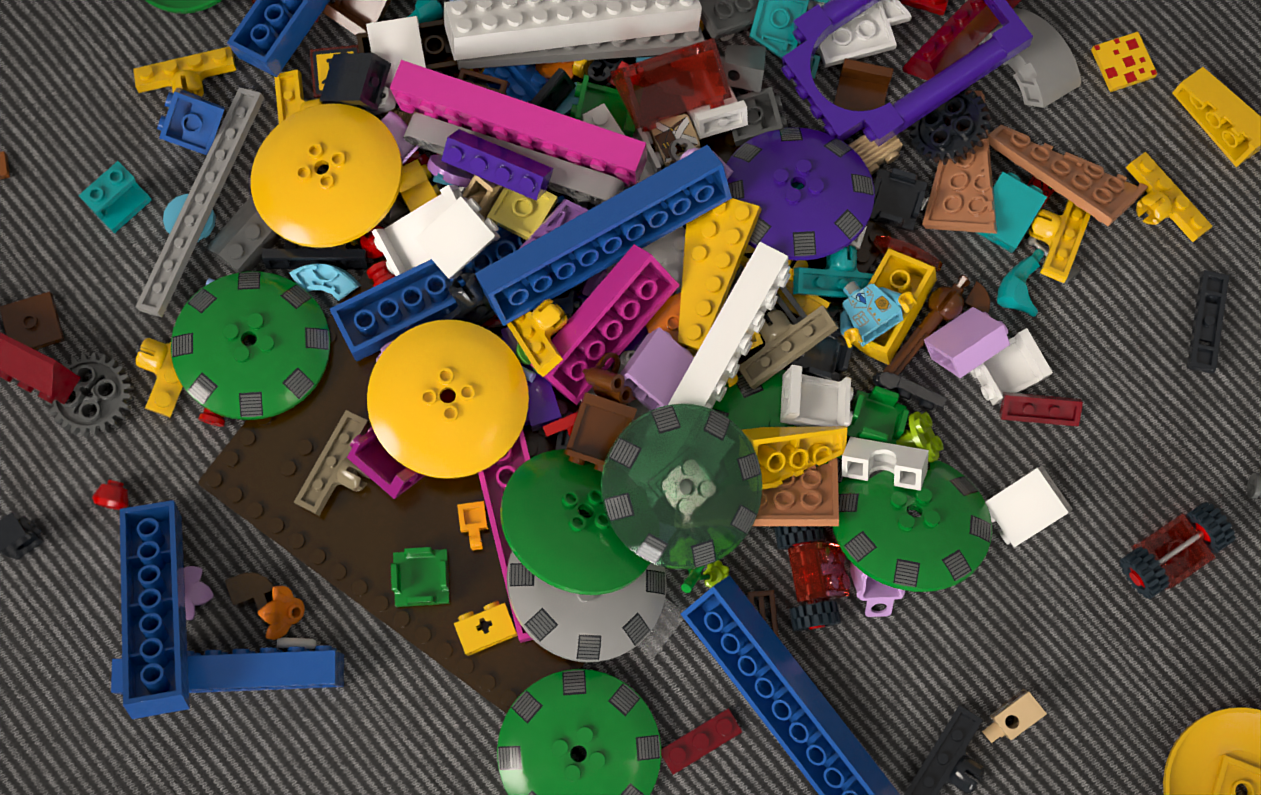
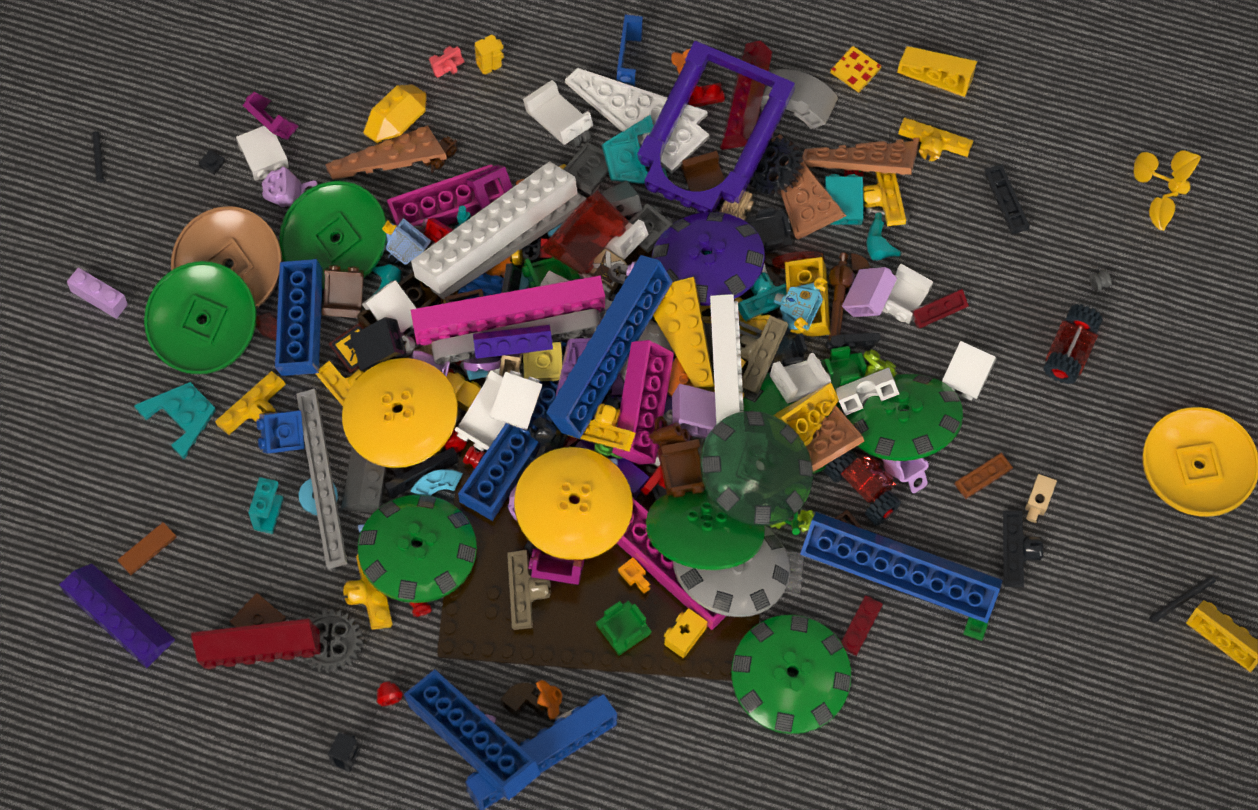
camera: 30 degrees left, 10 degrees down
(114, 35) = (186, 408): none -> teal wing
(965, 645) = (983, 475): none -> dark orange tile

